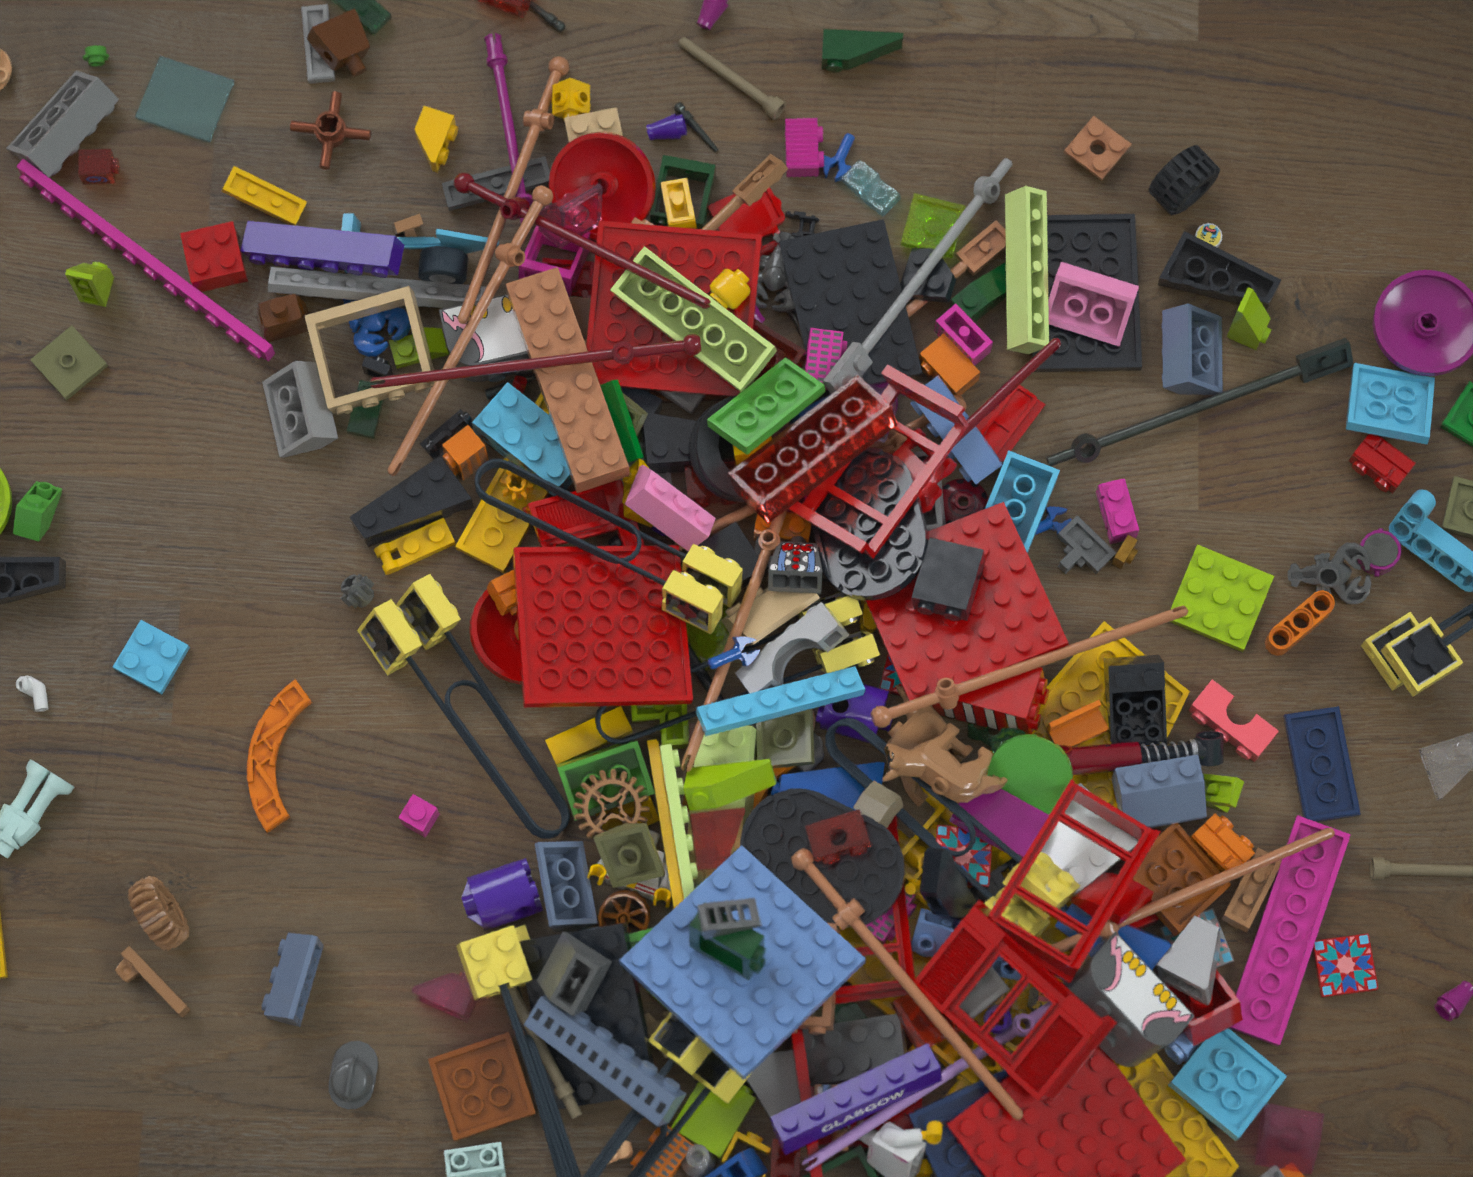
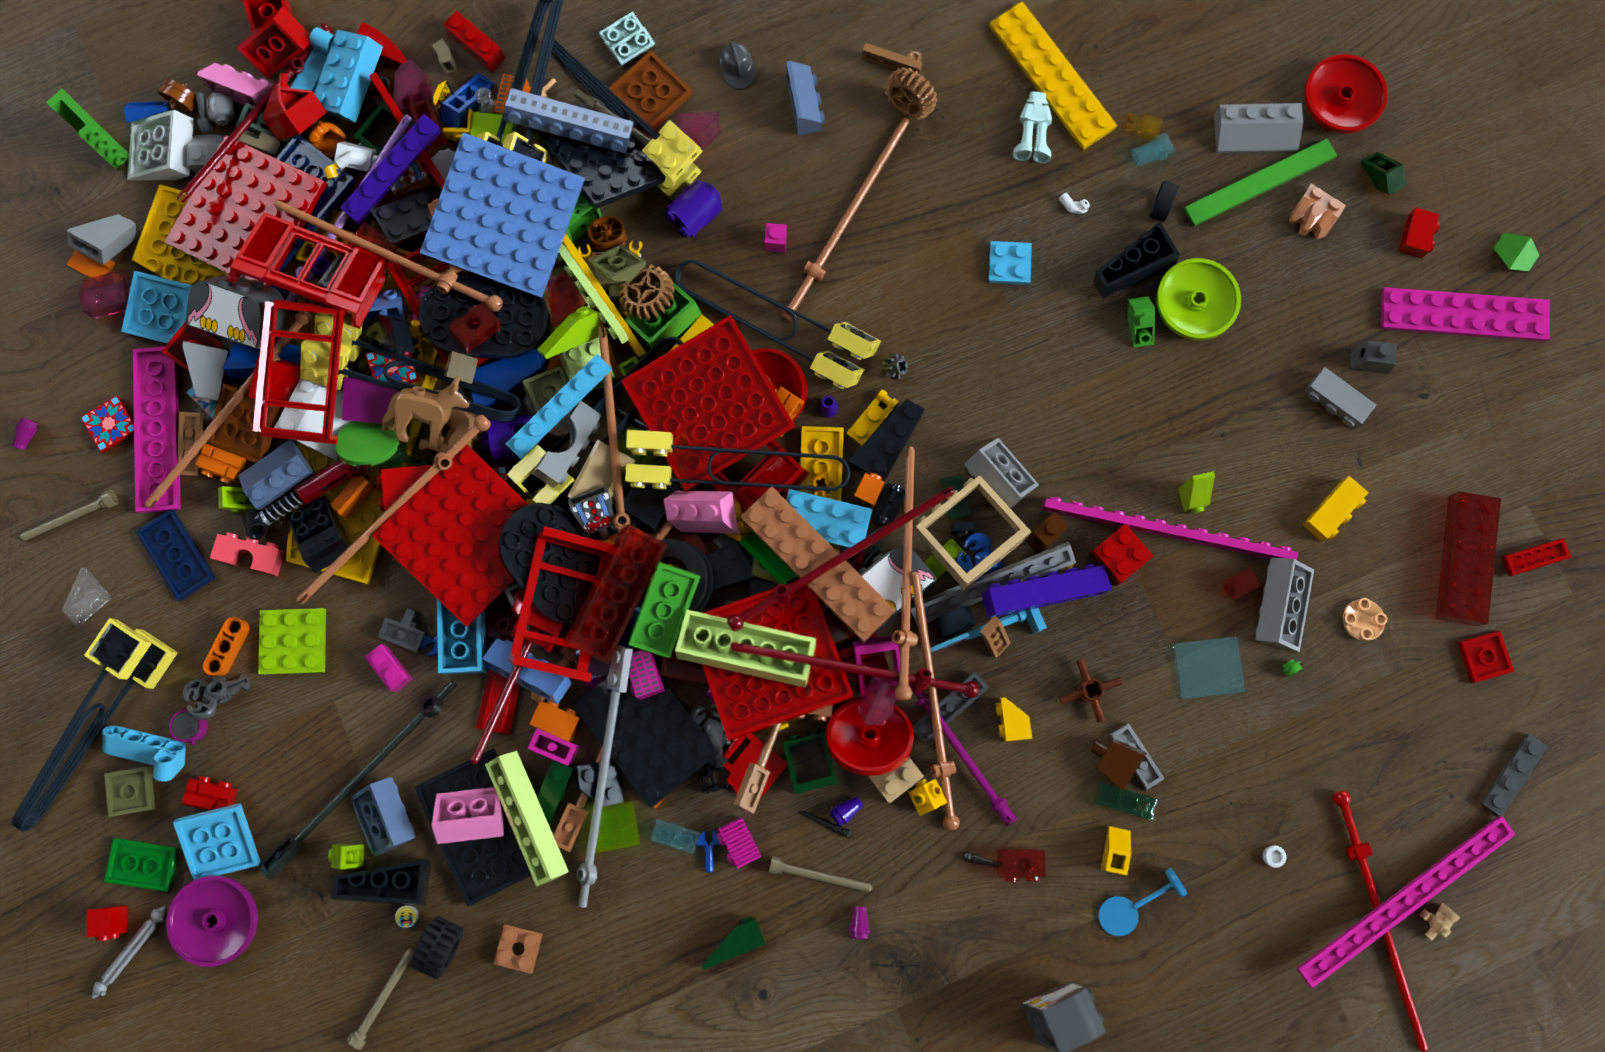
camera: 155 degrees right, 5 degrees up
(69, 362) = (1179, 435): olive plate -> none
(264, 196) = (1111, 617): yellow hinge -> none
(264, 752) = (901, 236): orange tile -> none
(391, 756) = (815, 270): none -> nougat bar
(463, 586) = (828, 411): none -> dark purple cone
(566, 885) = (654, 231): sand blue slope -> none
(572, 974) = (613, 158): dark grey slope -> none
(678, 203) = (806, 746): yellow slope -> none
(716, 908) = (506, 207): flat silver slope -> none
(730, 288) = (730, 683): yellow head -> none
(735, 653) = (604, 425): blue bar -> none
(737, 951) = (511, 209): dark green window -> none
(948, 579) = (476, 541): black brick -> none
(1126, 552) = (370, 640): pearl gold plate -> none
(1312, 136) = (358, 1038): none -> dark tan piece

